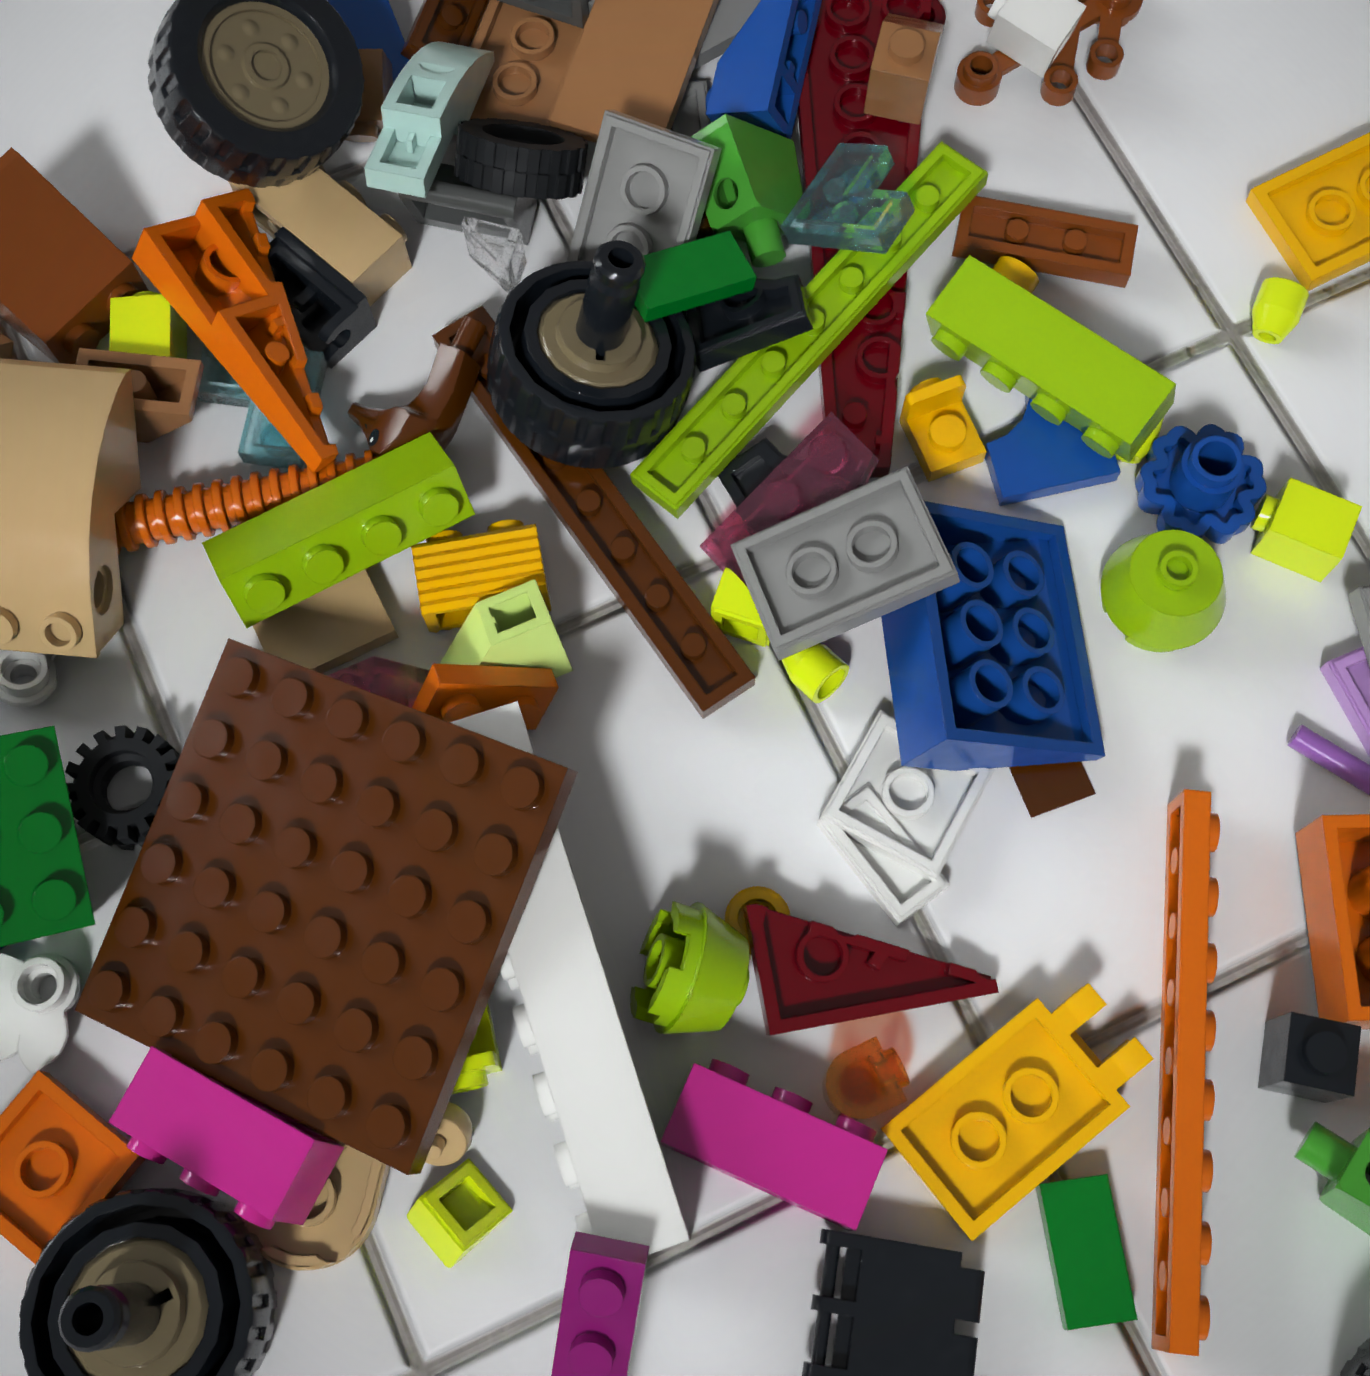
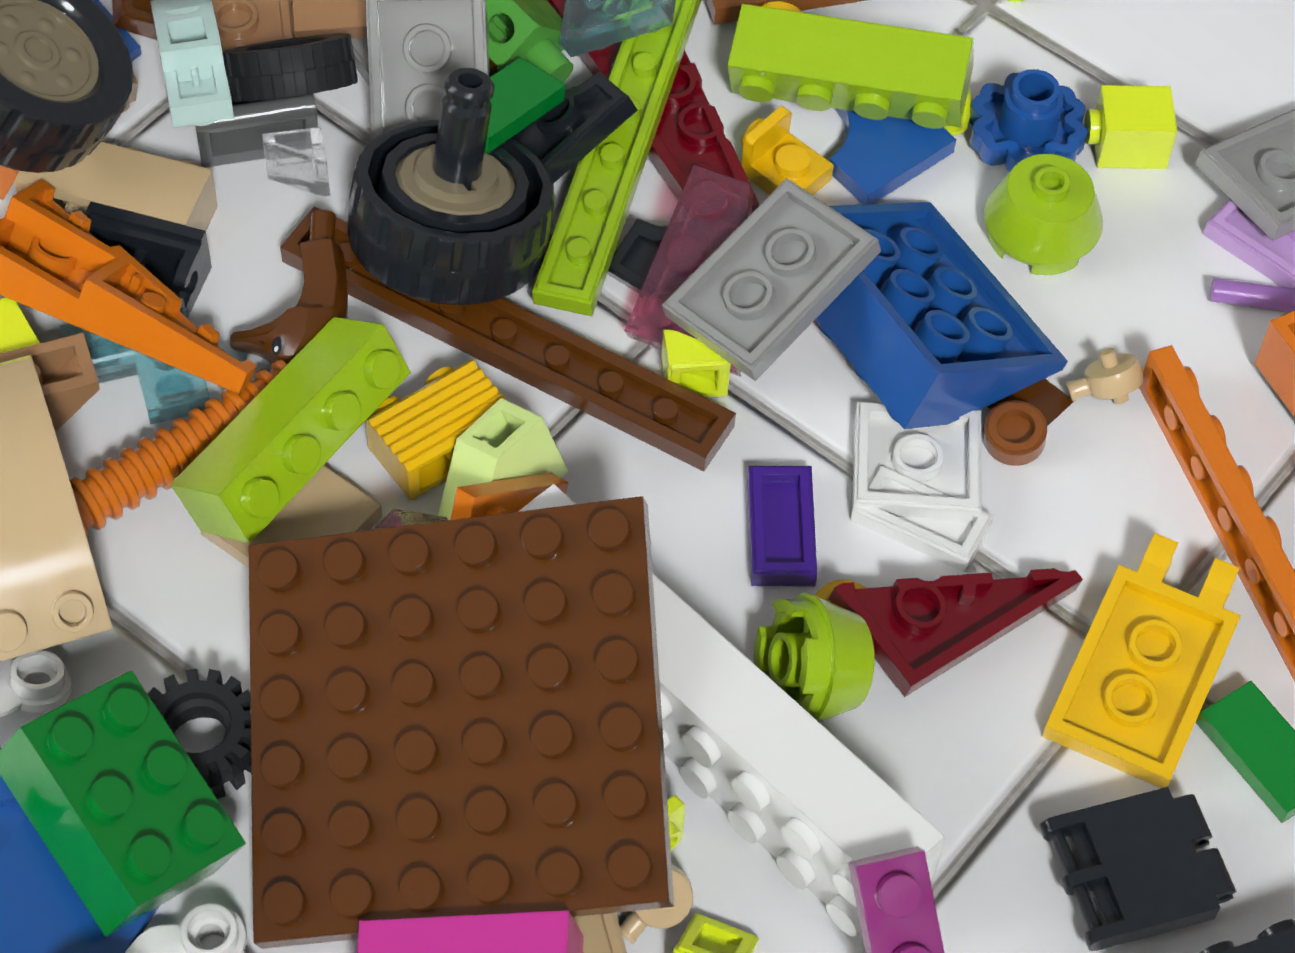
camera: 30 degrees left, 15 degrees down
(746, 805) = (781, 526): none -> dark purple tile
(775, 1143) = (972, 772): dark pink brick -> none
(816, 671) = (781, 392): neon yellow hose -> none
(865, 1081) = (1011, 693): clear orange plate -> none
(1016, 806) = (1015, 433): none -> dark orange tile
(1137, 790) = (1108, 378): none -> tan piece

